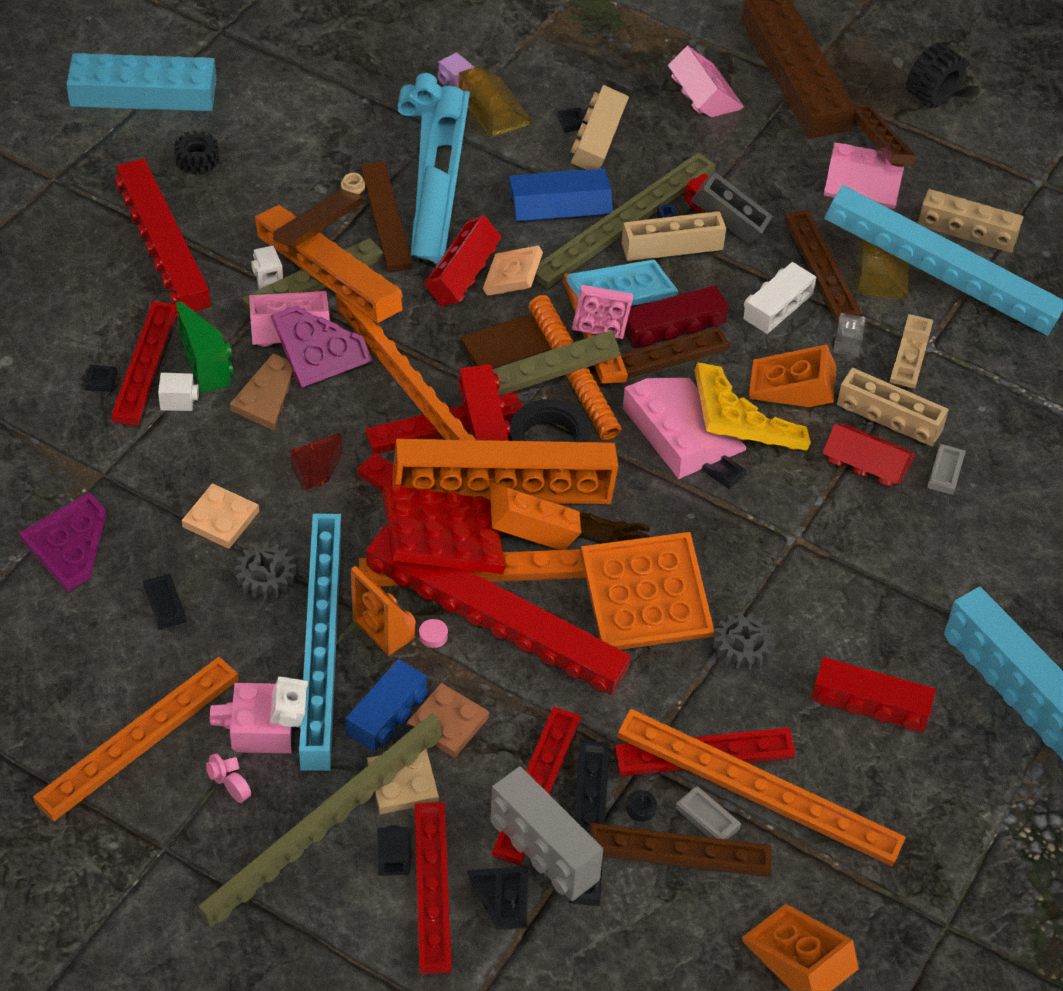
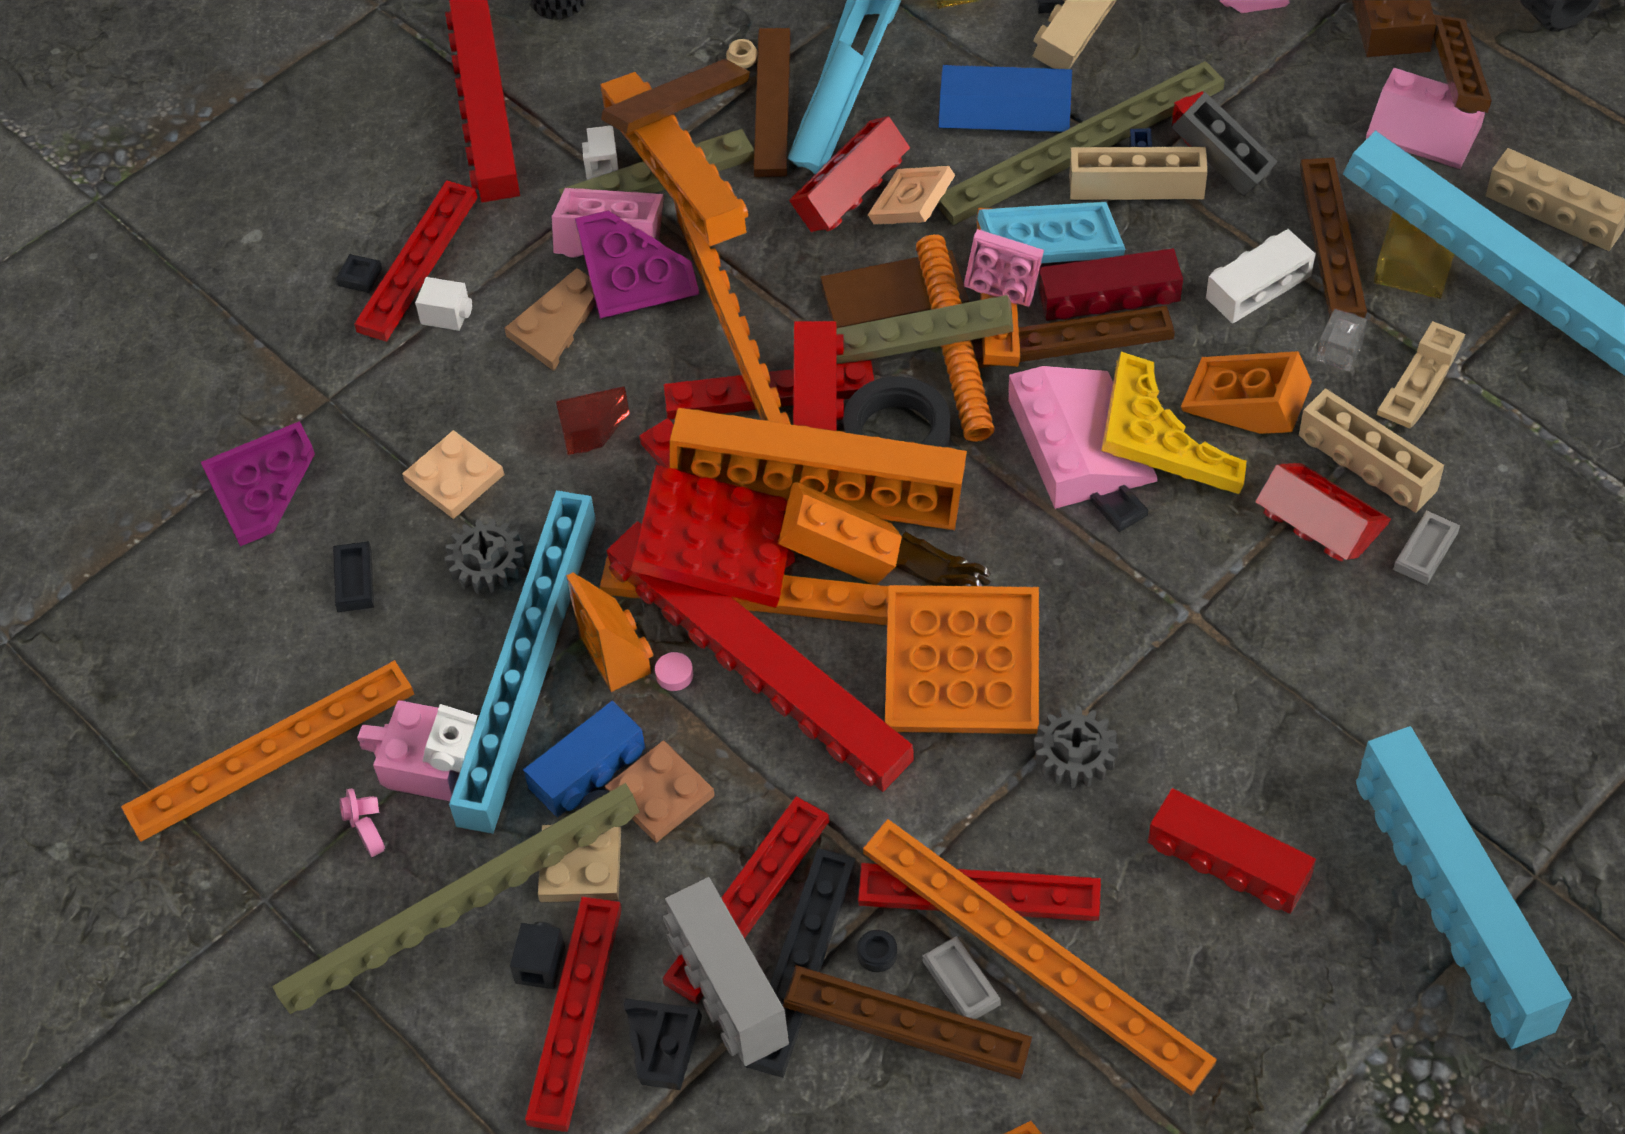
camera: 20 degrees right, 5 degrees up
(204, 350) = (487, 256): green slope -> none

